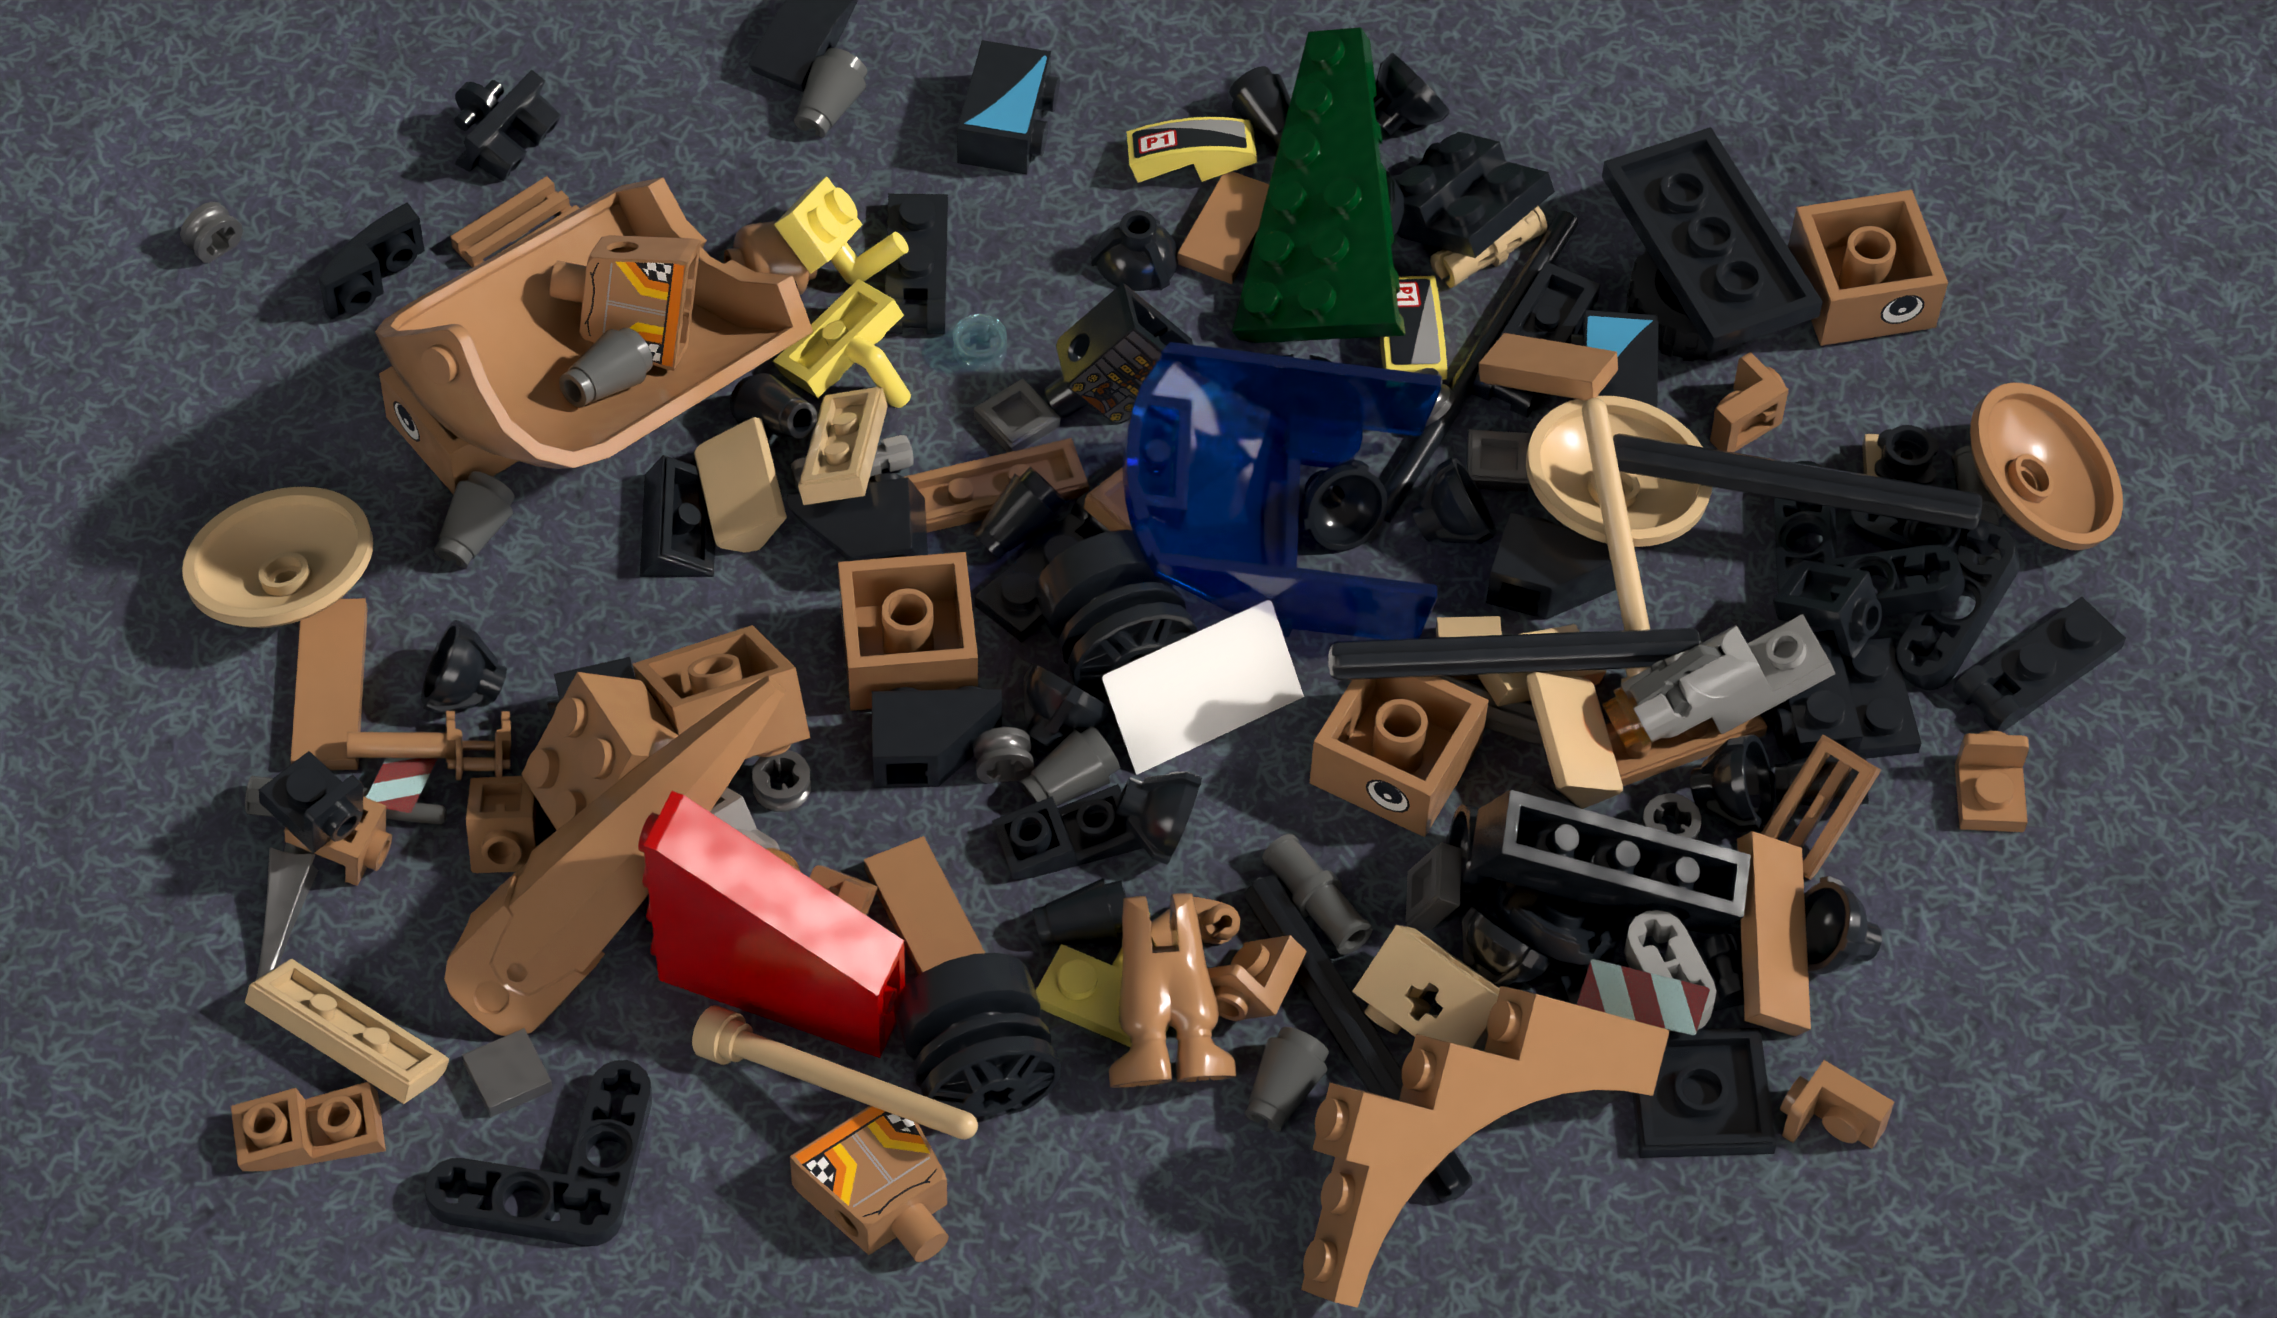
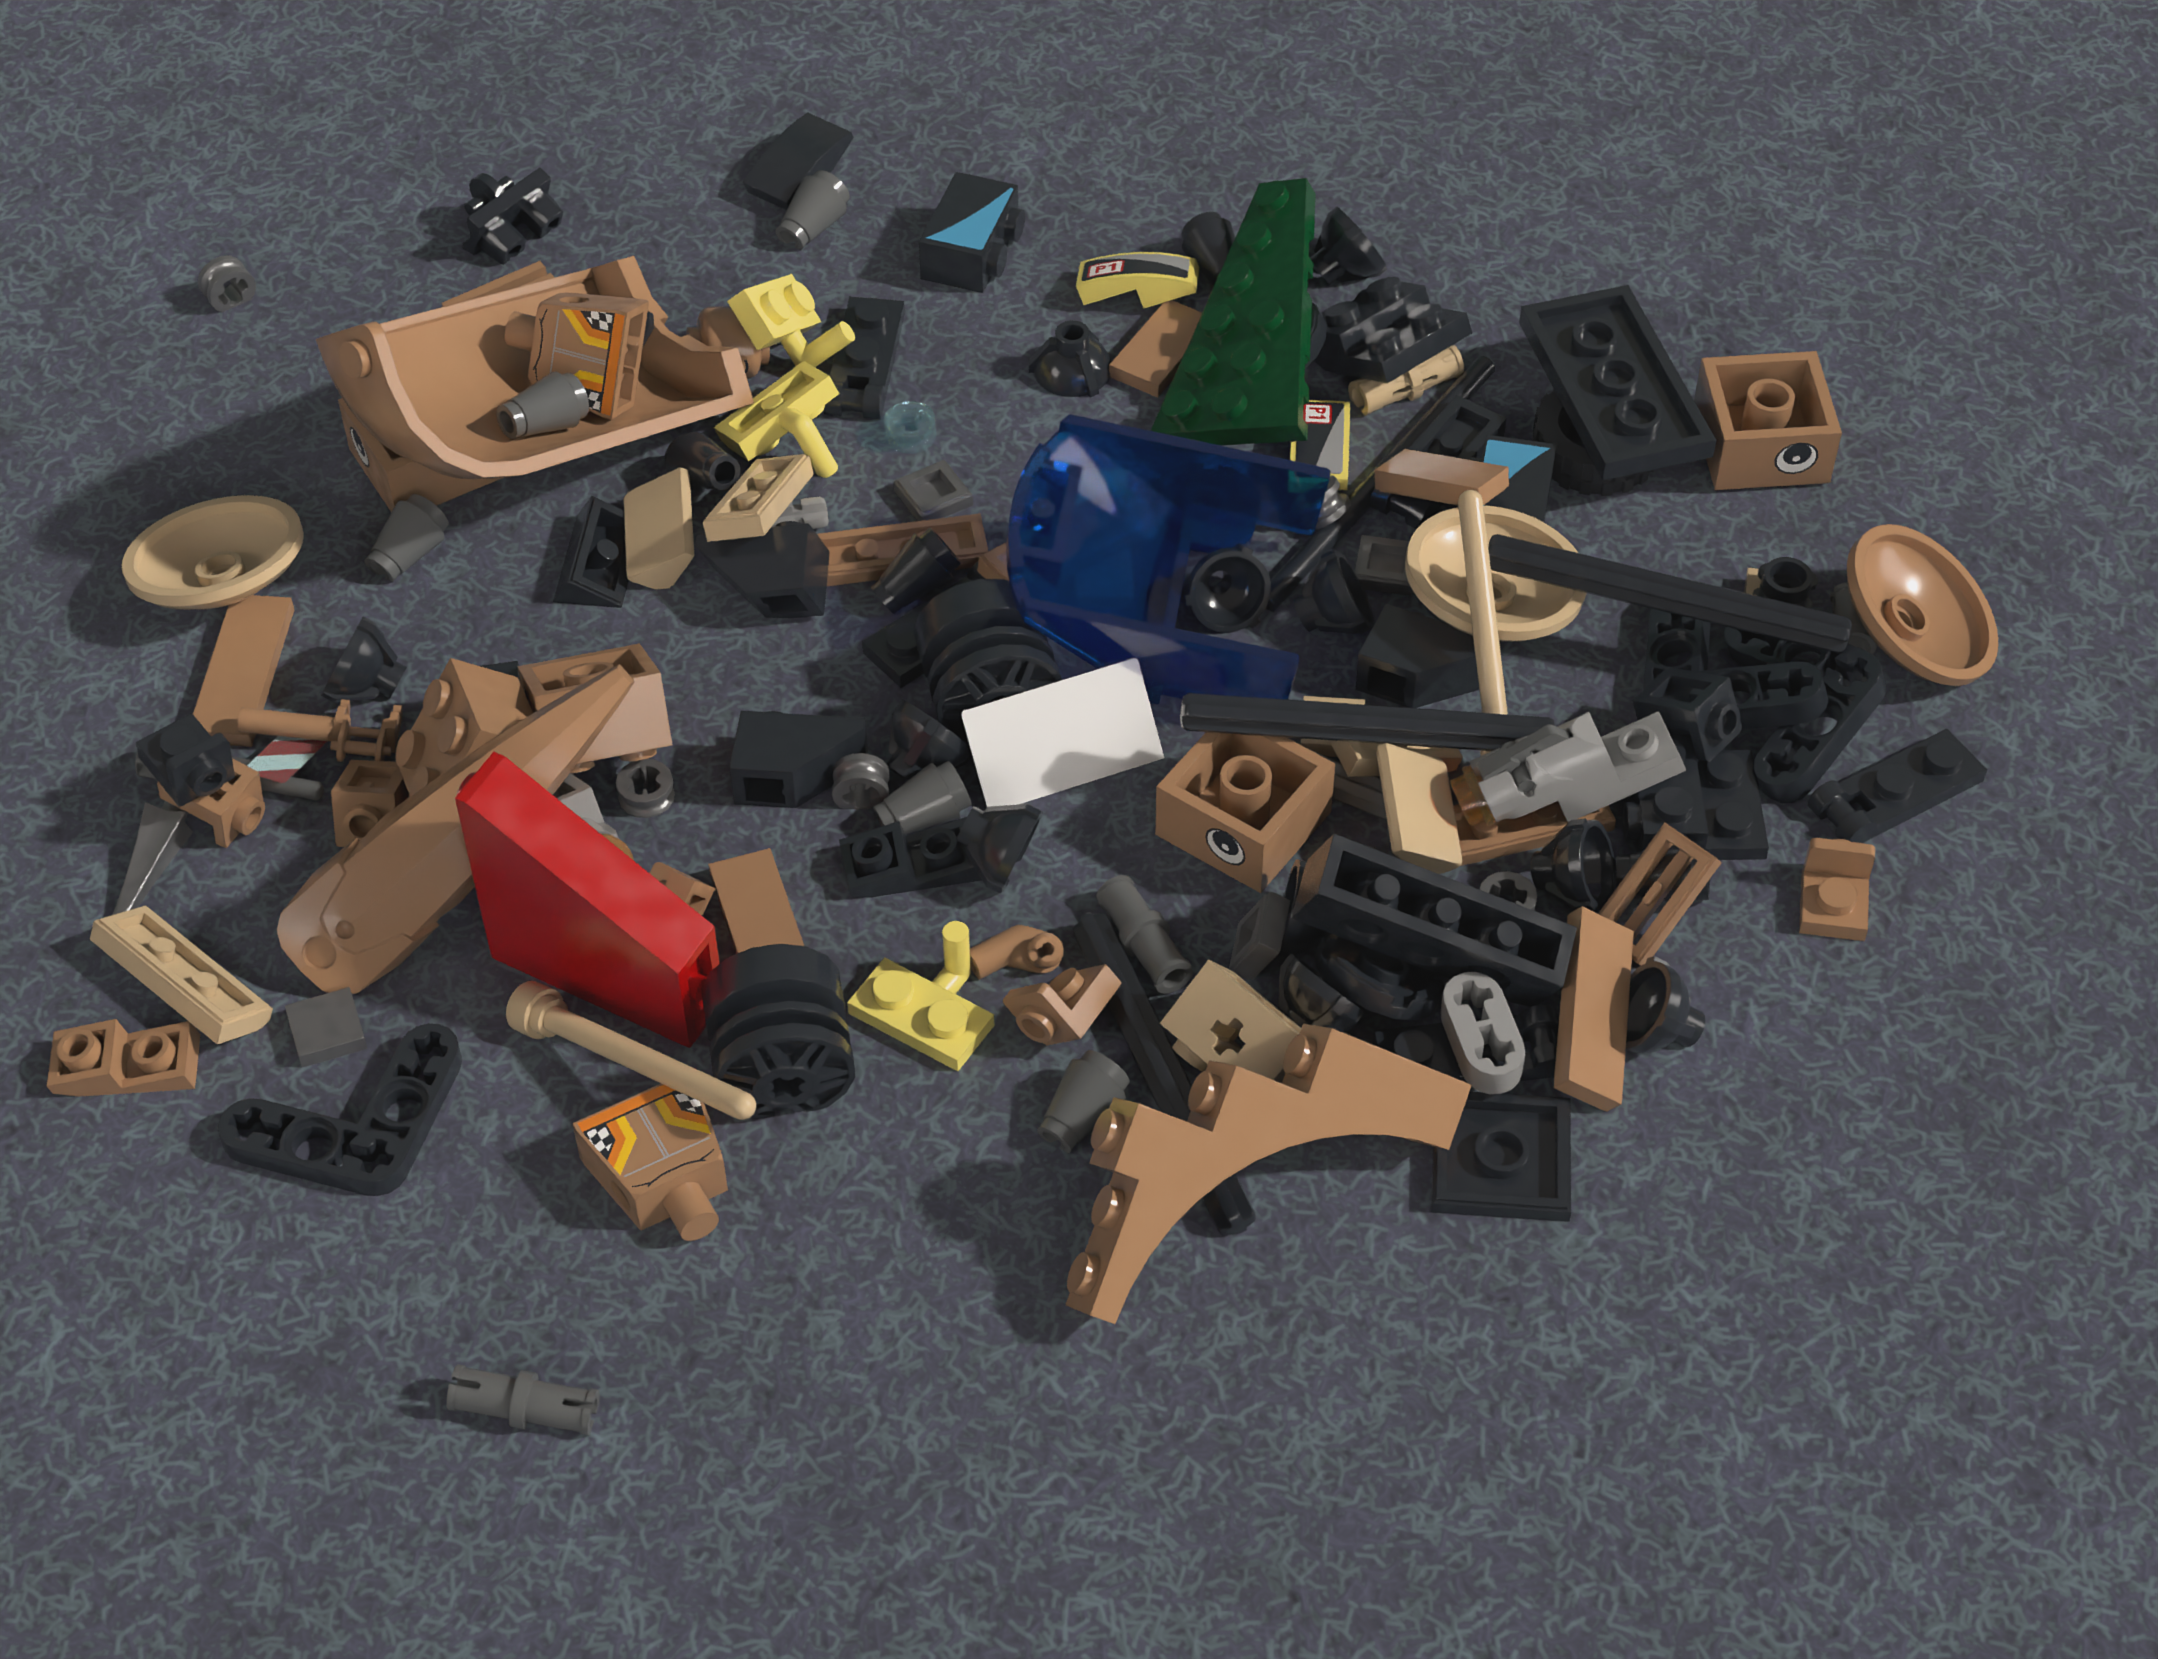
camera: 10 degrees right, 5 degrees down
(354, 274) = (375, 300): black slope -> none
(907, 625) = (787, 654): medium nougat brick -> none
(1083, 915) = (908, 932): black cone -> none
(1110, 355) = (1014, 429): black torso -> none
(1163, 990) = (973, 1003): medium nougat piece -> none
(1643, 997) = (1453, 1052): clear light blue sticker -> none
(1750, 409) = (1640, 535): medium nougat bracket -> none
(1843, 1103) = (1644, 1175): medium nougat bracket -> none

